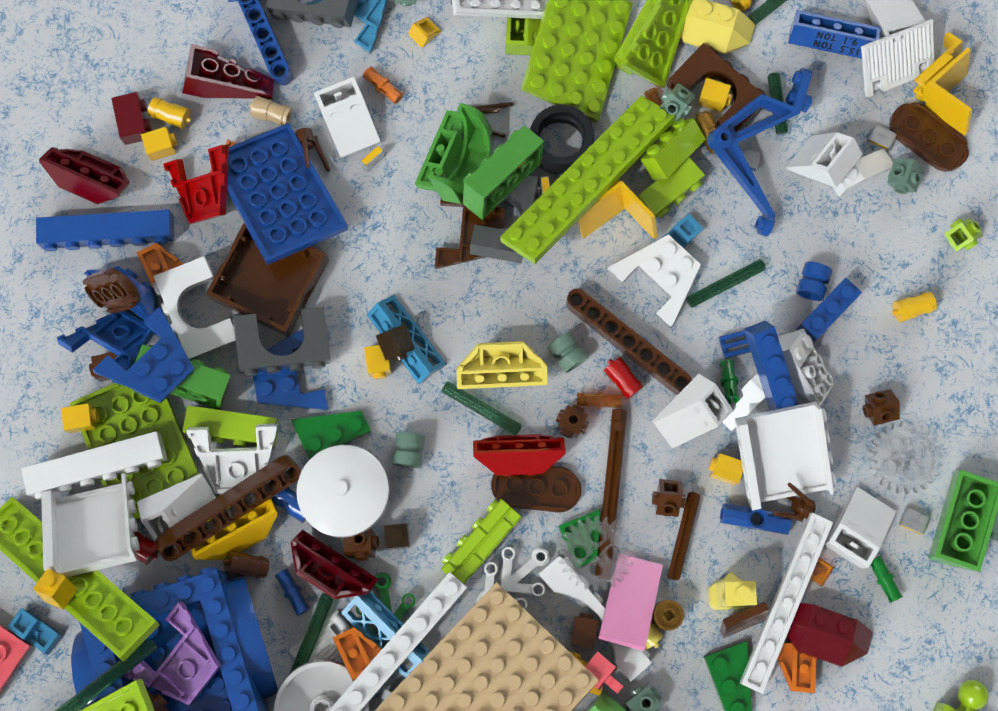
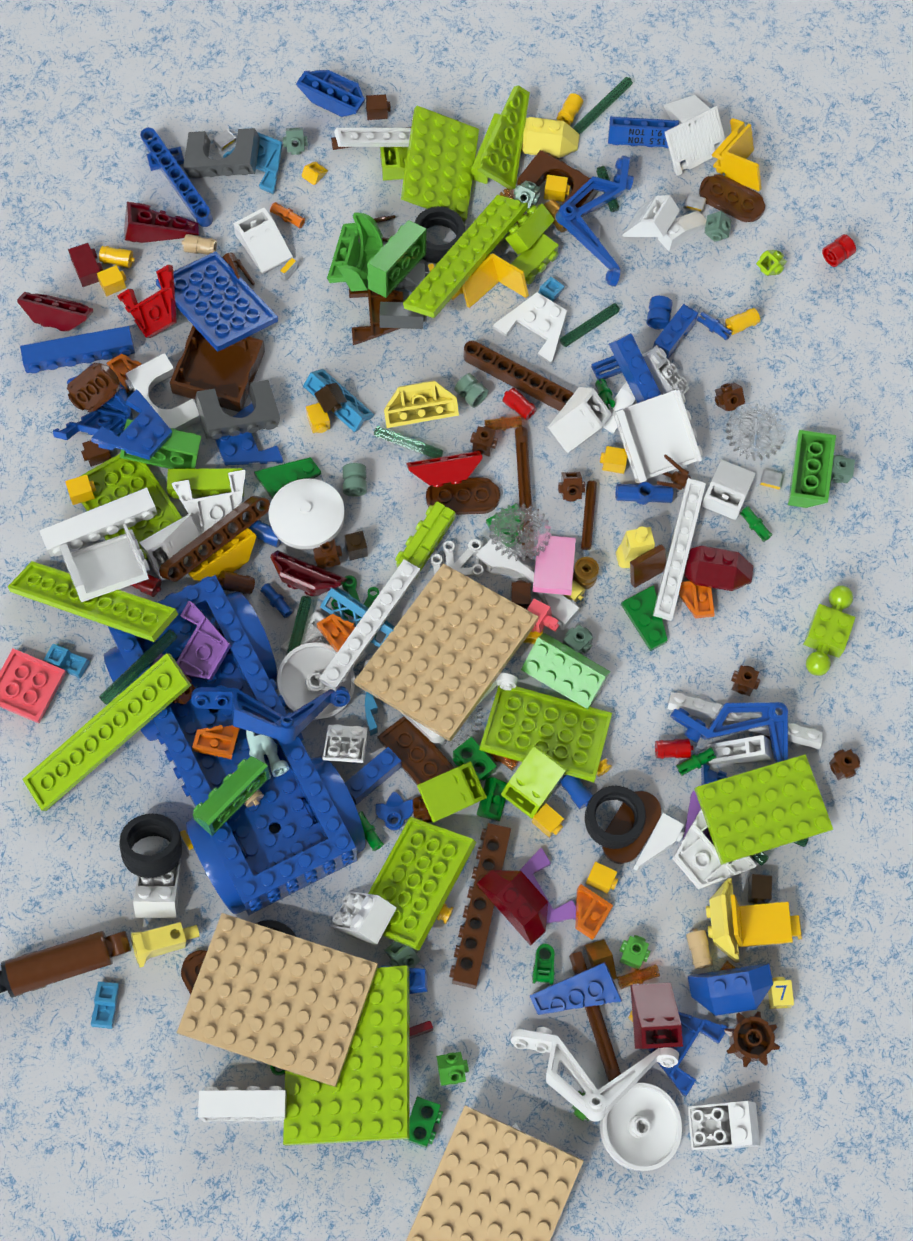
camera: 10 degrees left, 10 degrees down
(55, 589) = (87, 602): yellow brick -> none
(821, 572) = (703, 526): clear orange tile -> none
(878, 307) = (714, 325): none -> blue pin

